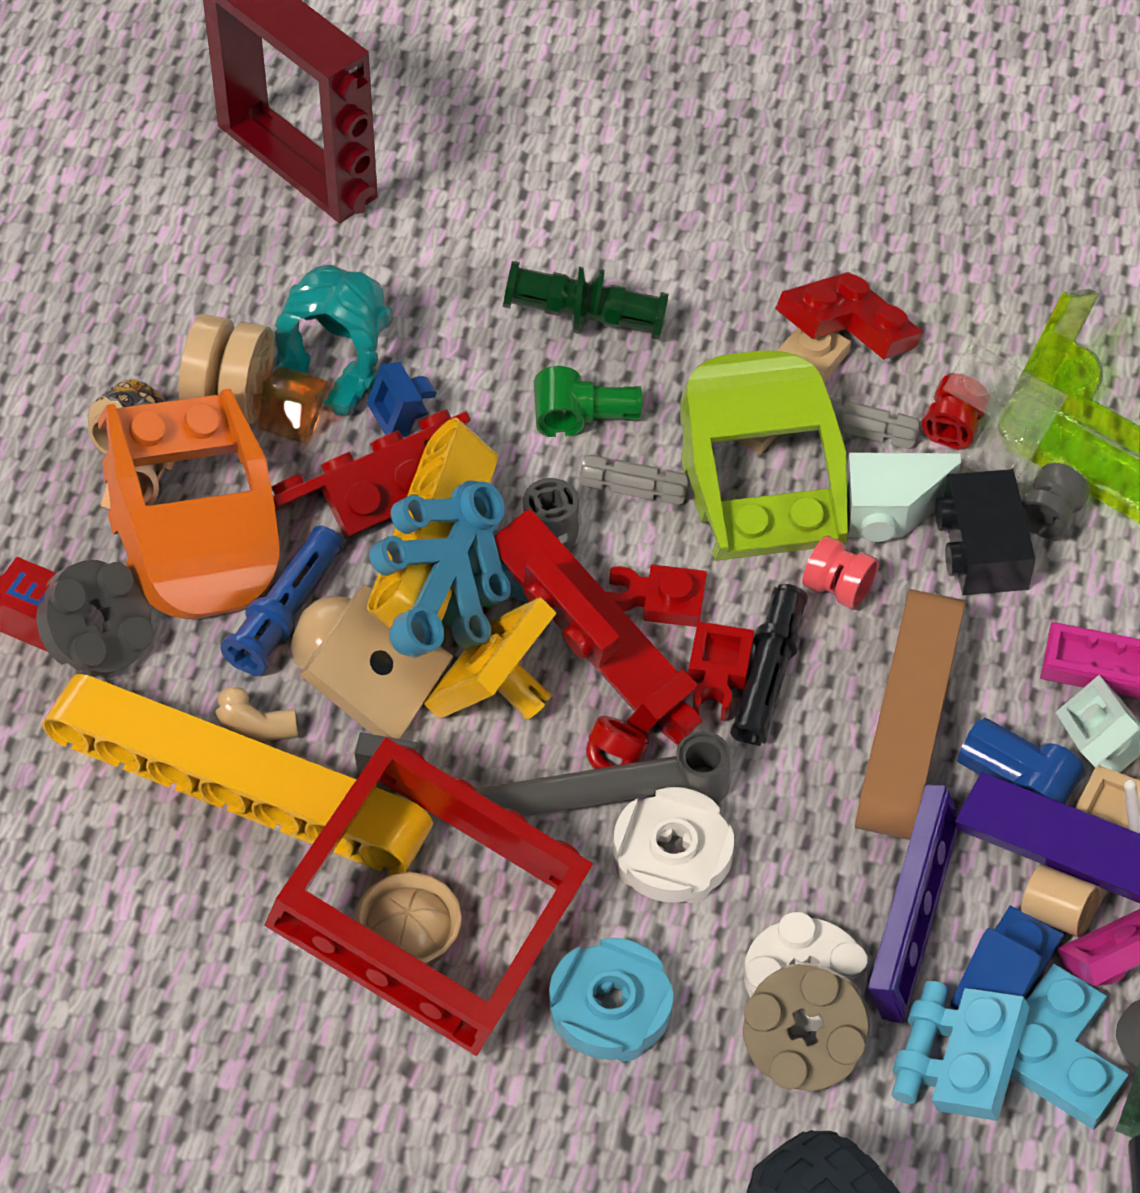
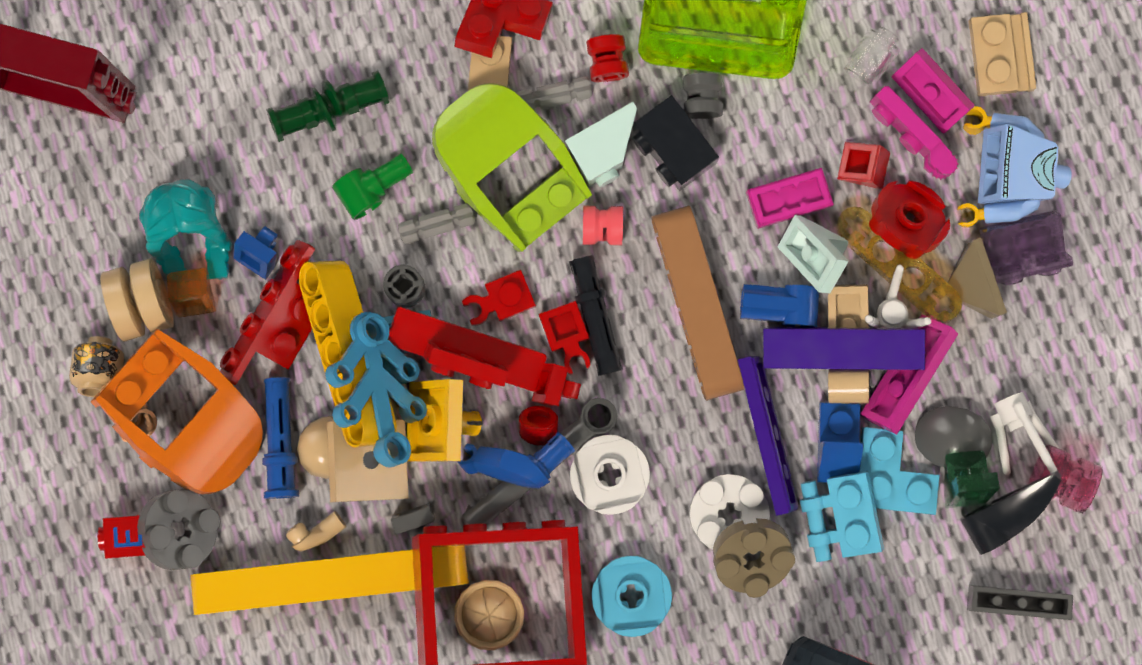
camera: 30 degrees left, 30 degrees up
(563, 755) = (517, 467): none -> blue arm
(1018, 407) = (647, 45): clear plate -> none

